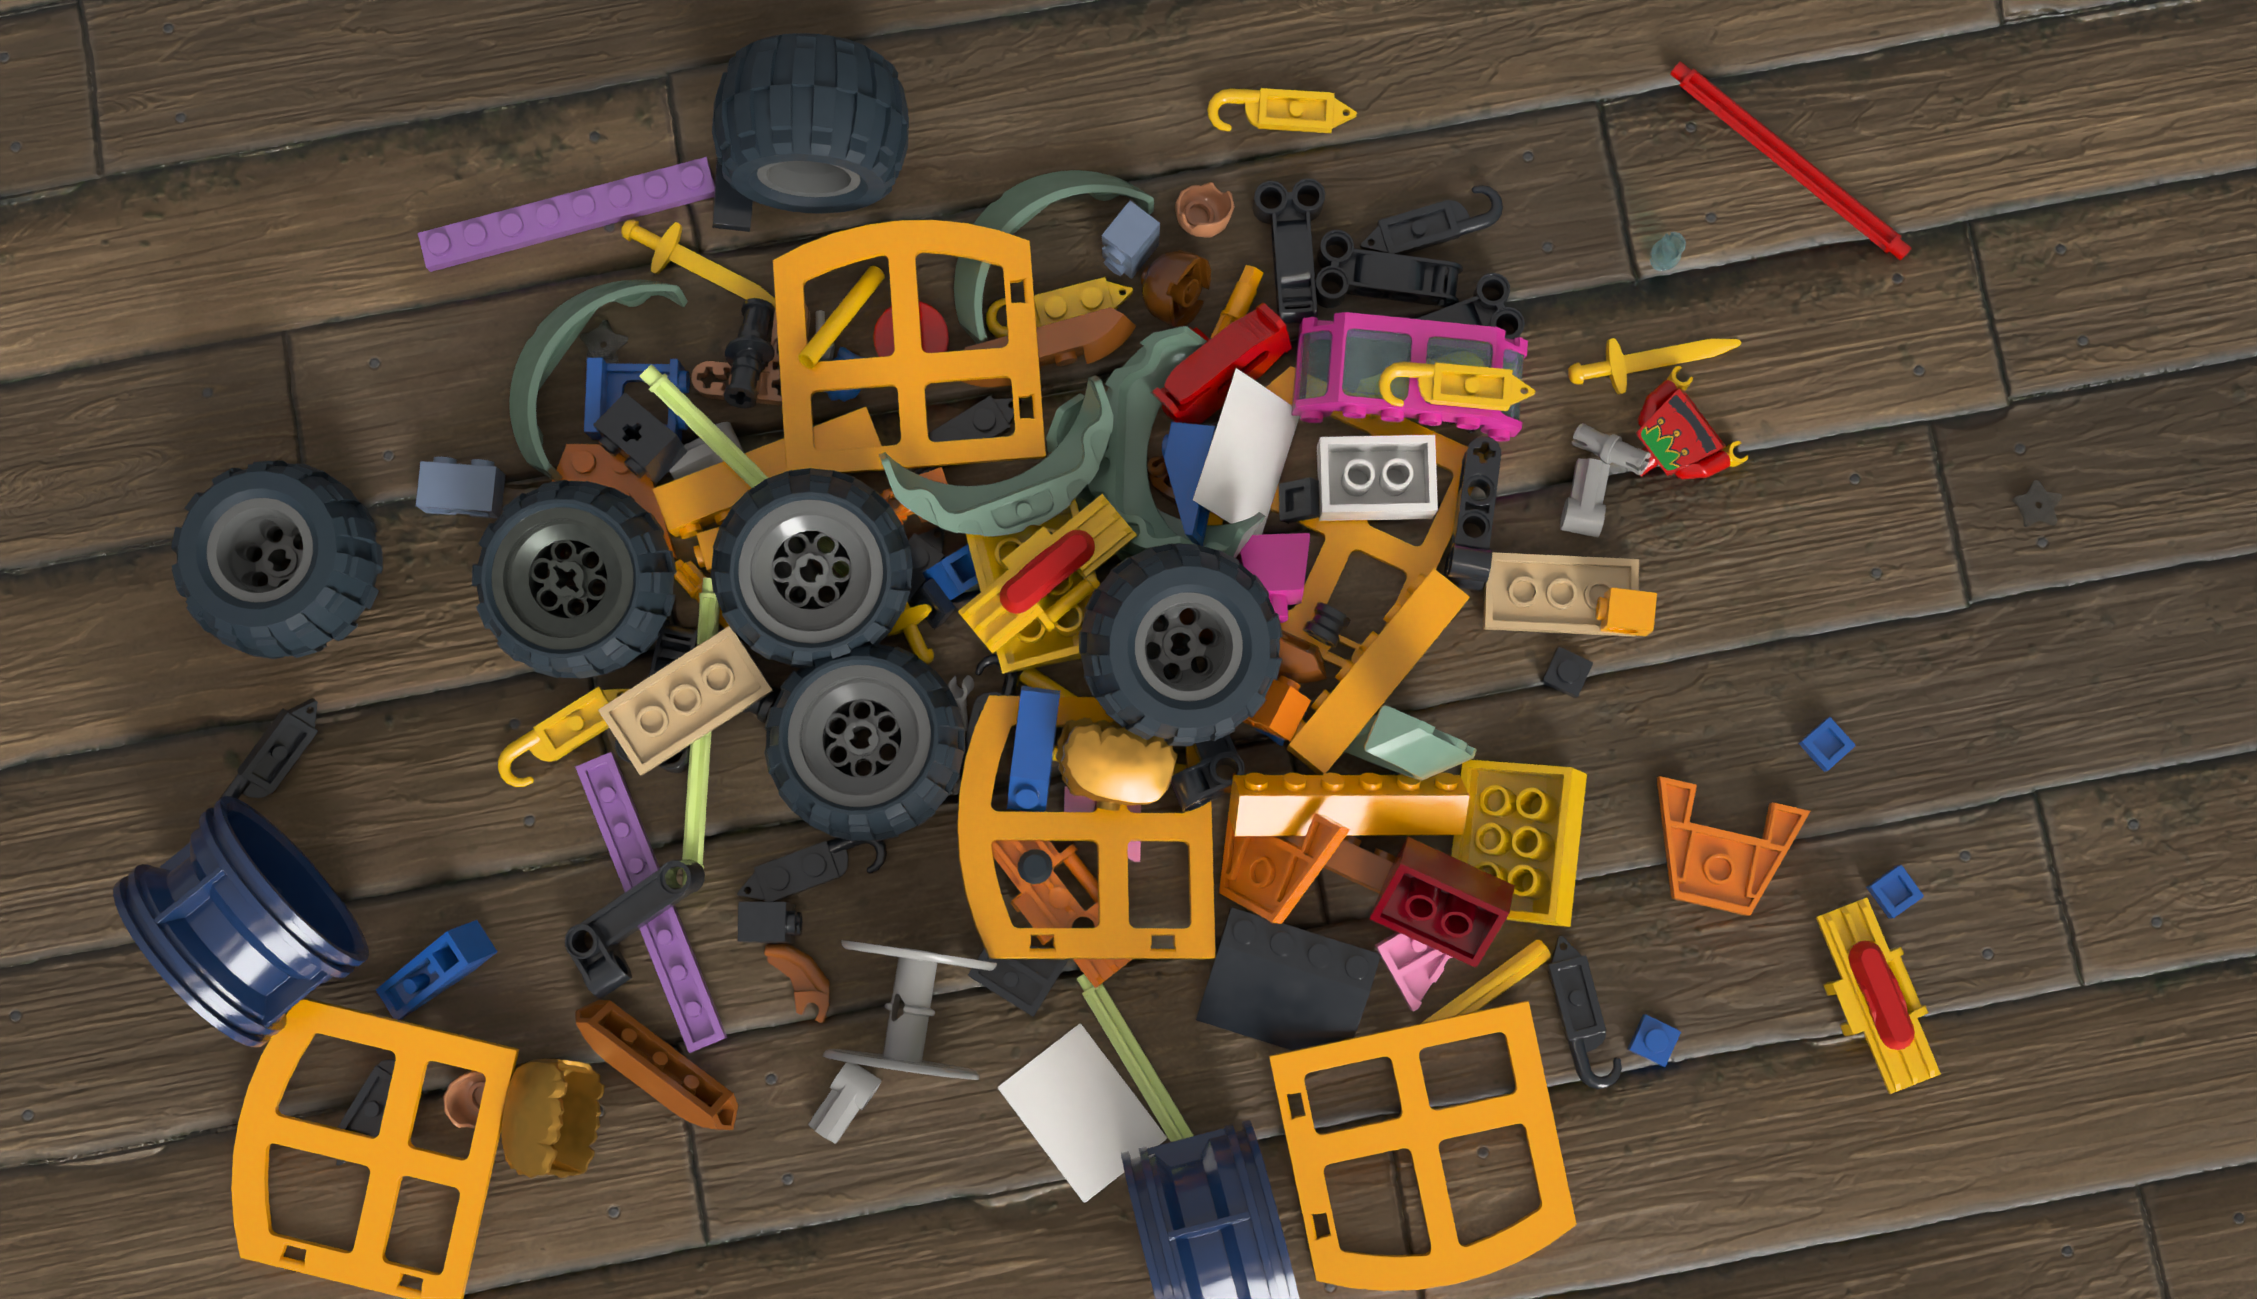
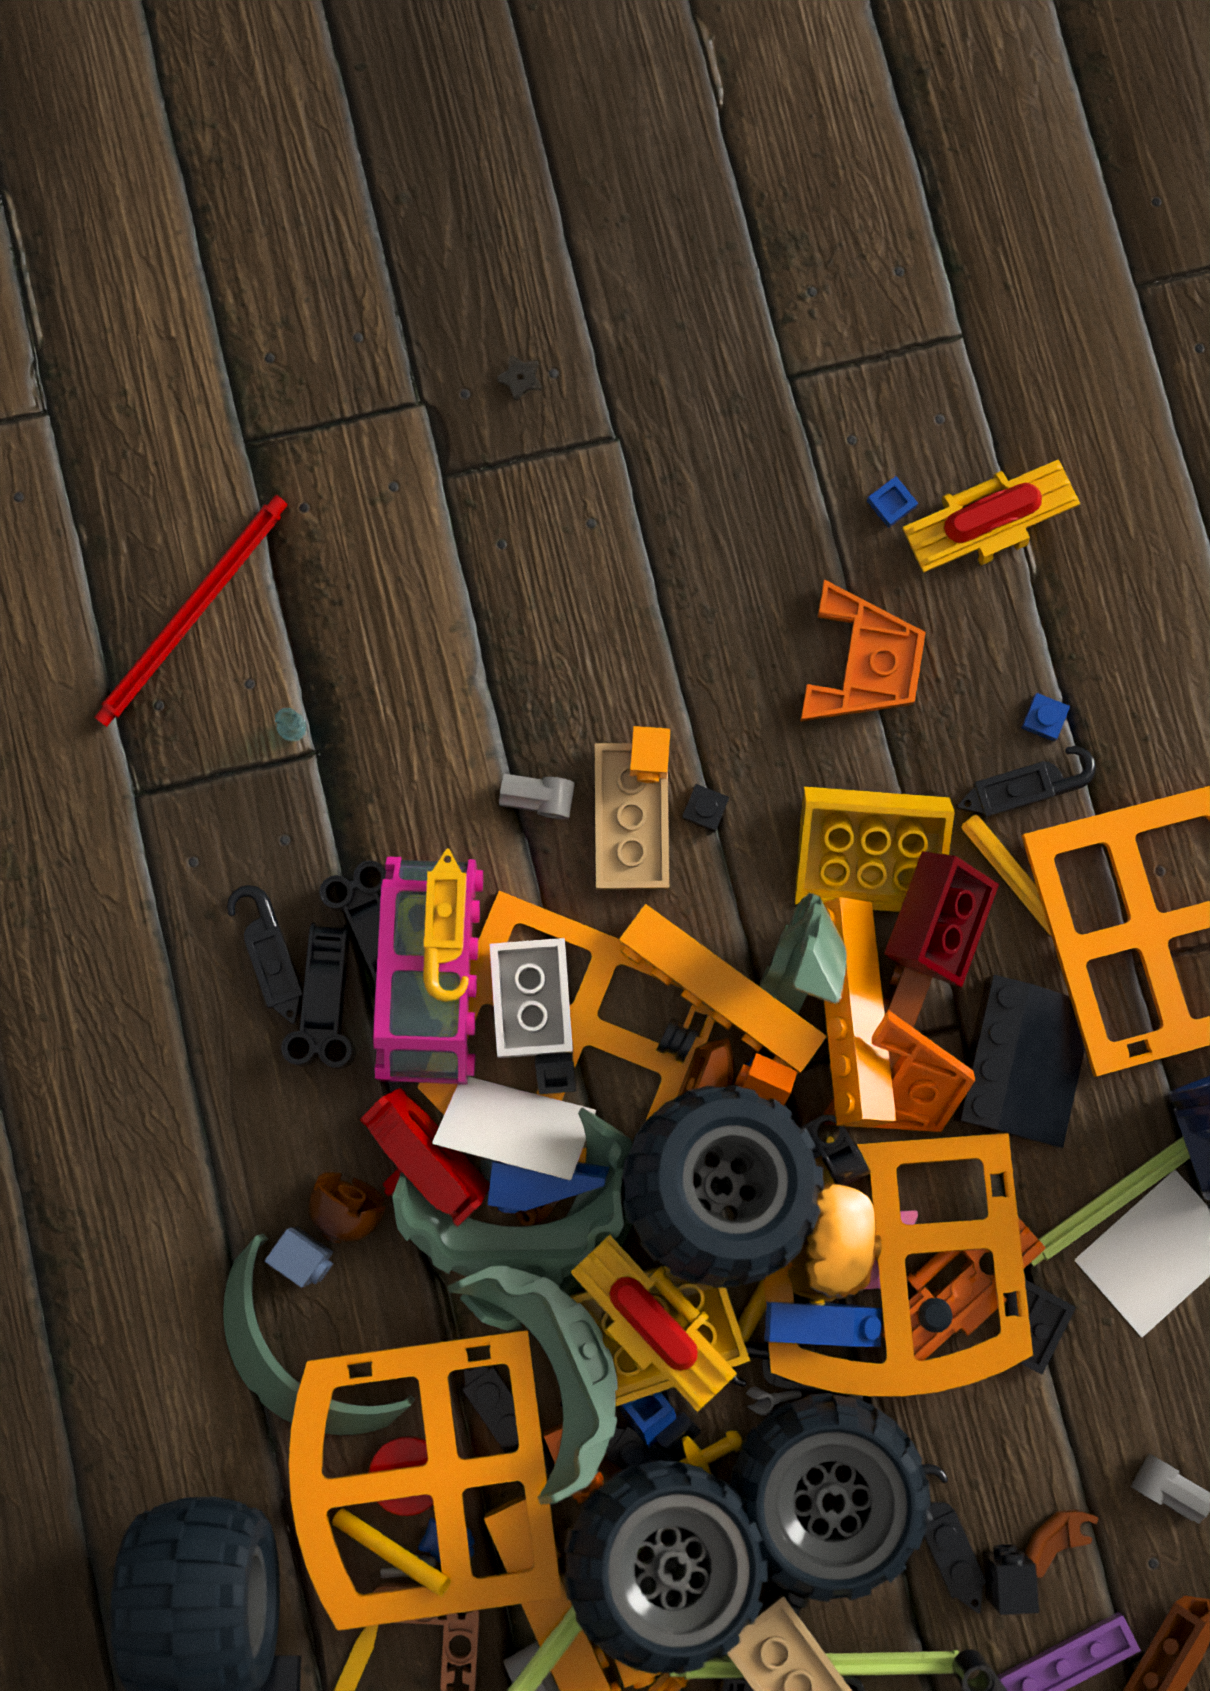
camera: 95 degrees left, 0 degrees up
(749, 353) = (434, 1646): black piece -> none
(907, 1034) = (1136, 1435): light grey piece -> none
(1062, 342) = (396, 1288): dark orange brick -> none
(1066, 303) = (366, 1316): yellow plate -> none
(1204, 210) = (263, 1183): nougat hair -> none
(1240, 298) = (355, 1142): light orange piece -> none
(1279, 565) = (628, 1092): dark pink torso -> none
(1283, 109) = (154, 1108): yellow plate -> none
(1292, 246) = (300, 1091): black piece -> none
(1411, 966) = (998, 945): bright pink wing -> none
(1471, 558) = (606, 905): black piece -> none
(1611, 449) = (488, 773): light grey pin -> none
(1619, 365) = (402, 768): yellow sword -> none
(1680, 434) = (472, 708): red torso -> none
(1827, 744) = (759, 565): blue plate -> none

